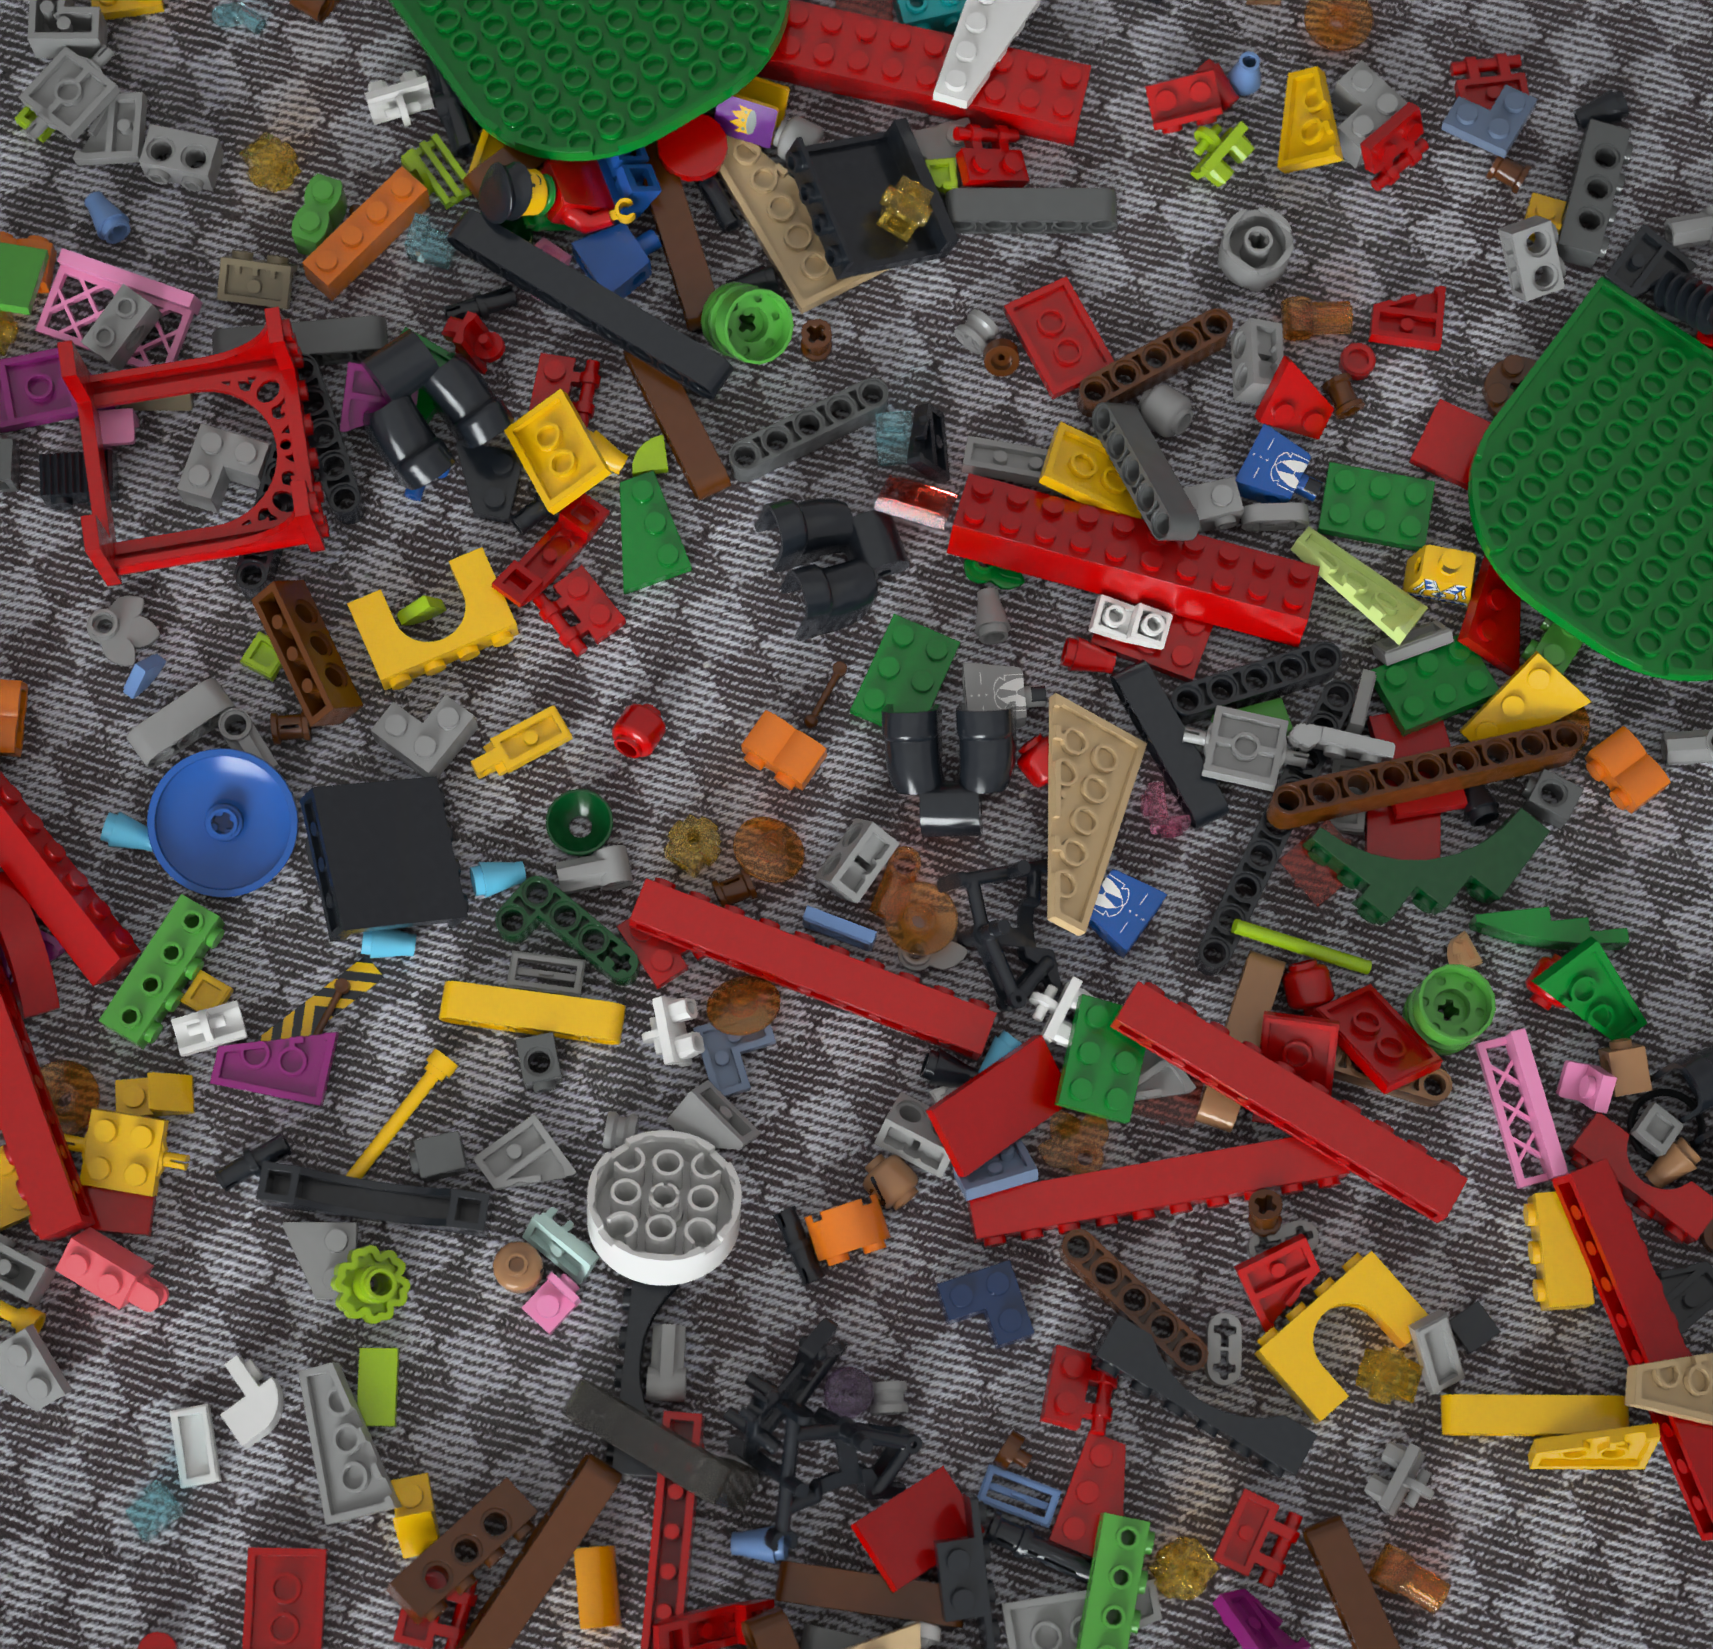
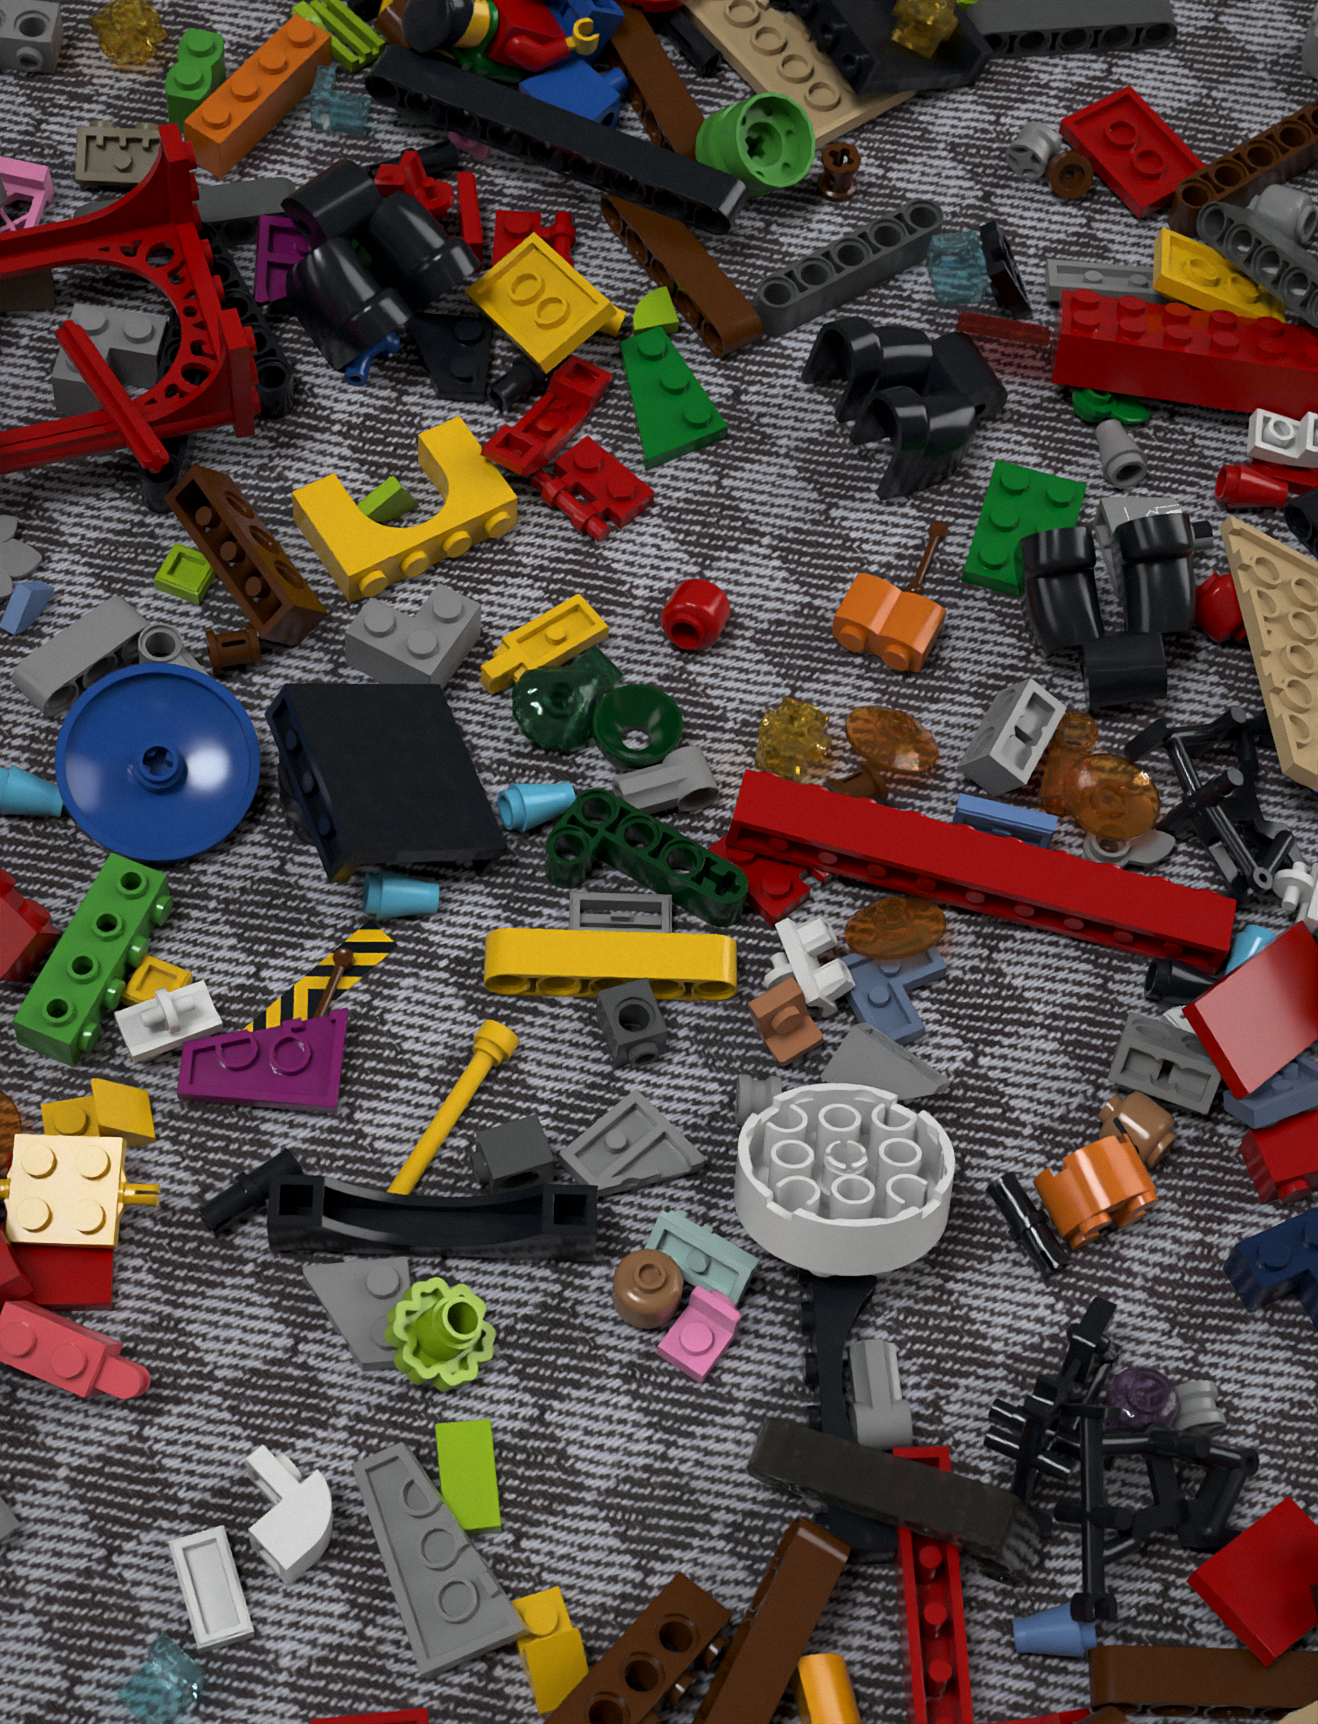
camera: 10 degrees left, 15 degrees down
(213, 525) = (112, 397): none -> red axle
(517, 364) = (469, 213): none -> red tile
(524, 794) = (559, 702): none -> clear green animal
(649, 1074) = (784, 1022): none -> nougat bracket

